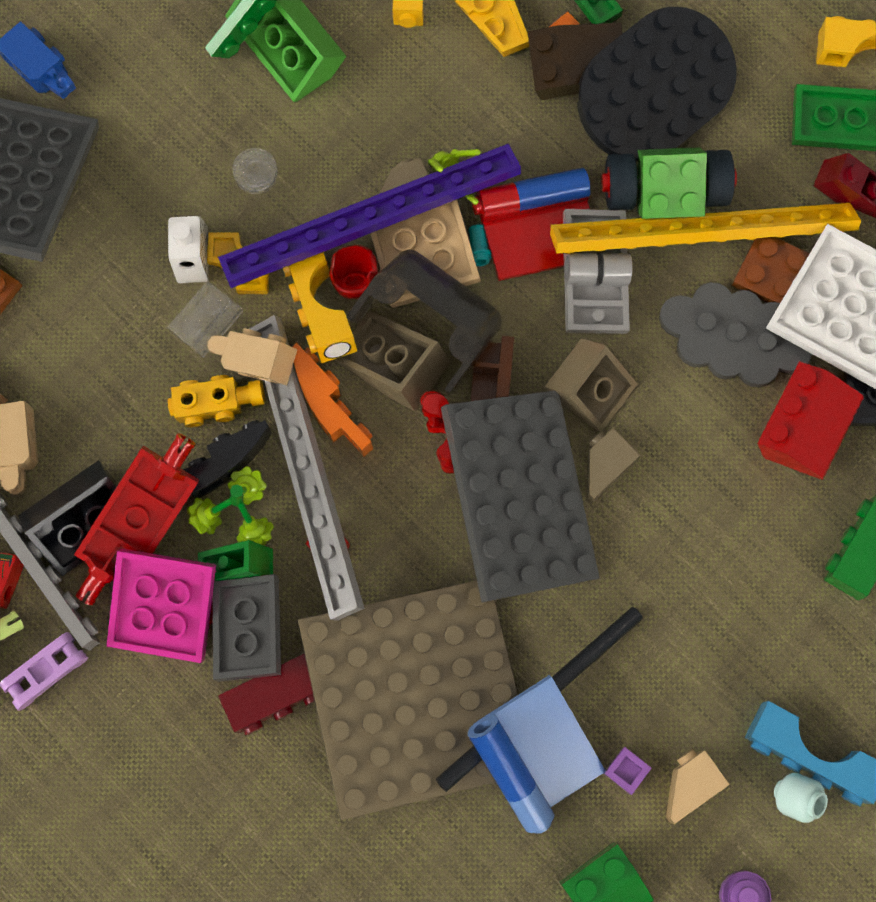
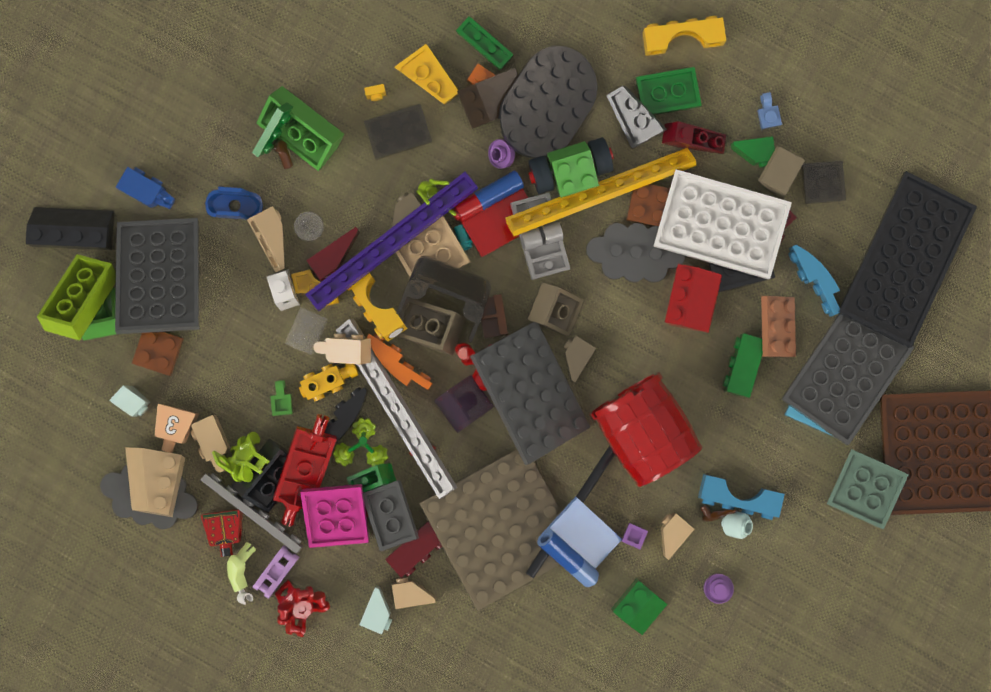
camera: 20 degrees left, 10 degrees up
(39, 485) = (239, 464): none -> lime piece
(62, 734) = (298, 605): none -> red piece
(135, 413) = (281, 402): none -> bright green plate
(154, 95) = (218, 203): none -> blue piece
(180, 780) = (377, 613): none -> light aqua slope
(194, 158) = (269, 232): none -> tan slope
(242, 764) = (410, 593): none -> tan slope
(250, 57) = (282, 149): none -> reddish brown arm
(281, 214) = (333, 256): none -> dark red slope
(352, 270) = (390, 277): red hair -> none
(411, 488) = (463, 403): none -> slope
(425, 74) = (398, 131): none -> clear smoke plate
(568, 140) = (501, 154): none -> medium lavender plate
(691, 597) = (647, 430): none -> red piece
(759, 773) = (710, 516): none -> reddish brown bar
(780, 139) = (634, 117): none -> wing

